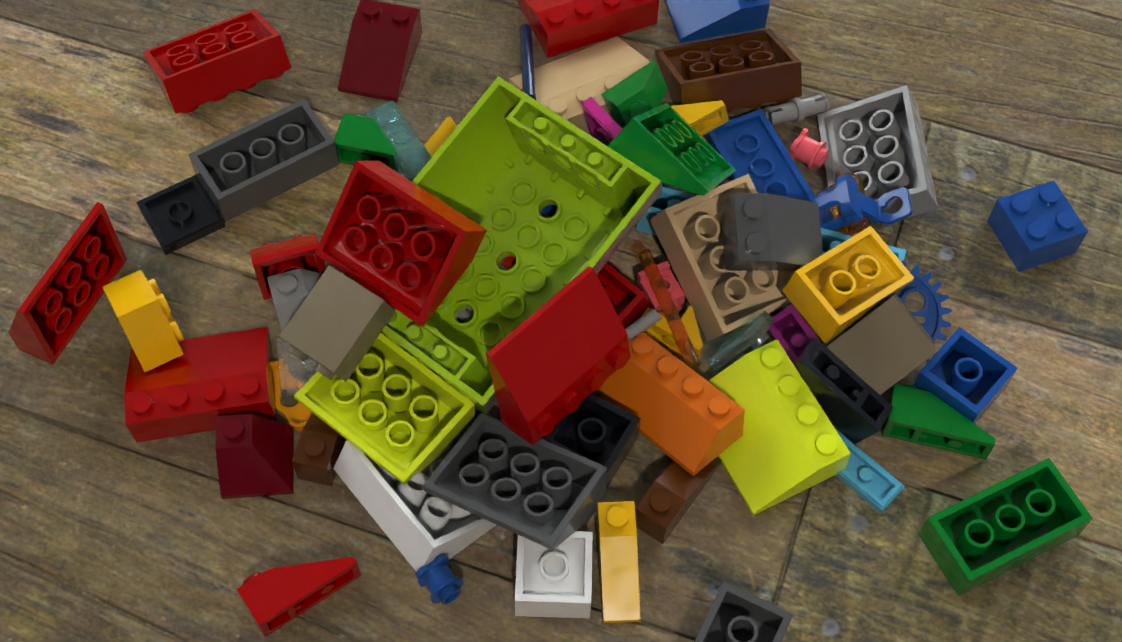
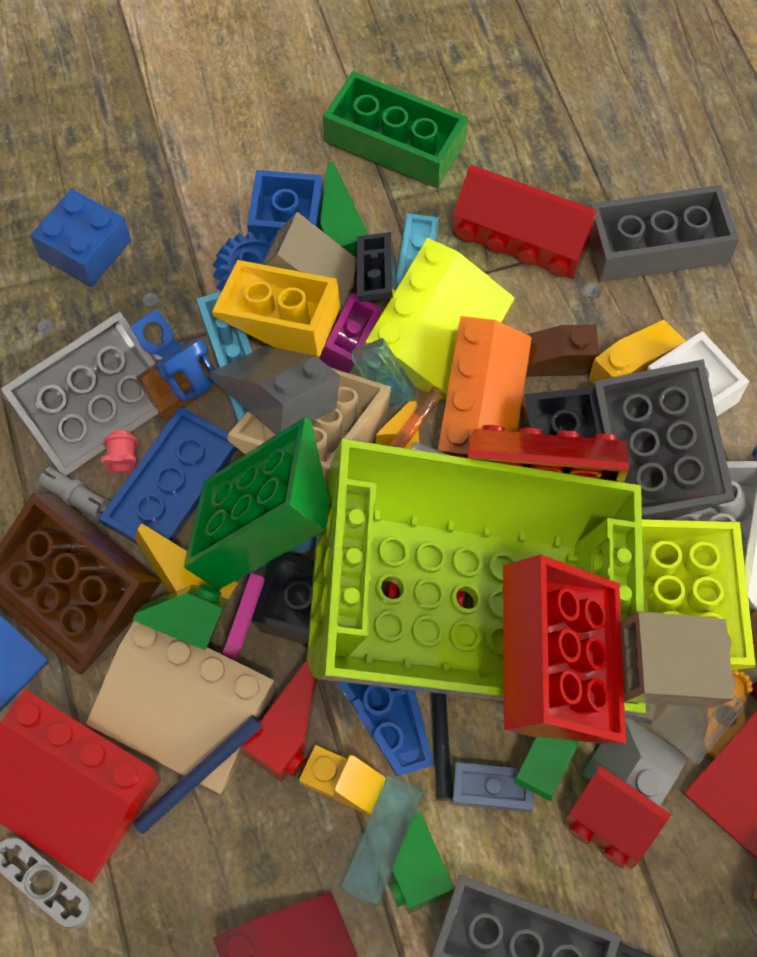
camera: 125 degrees left, 5 degrees up
(820, 555) = (523, 222): none -> red slope

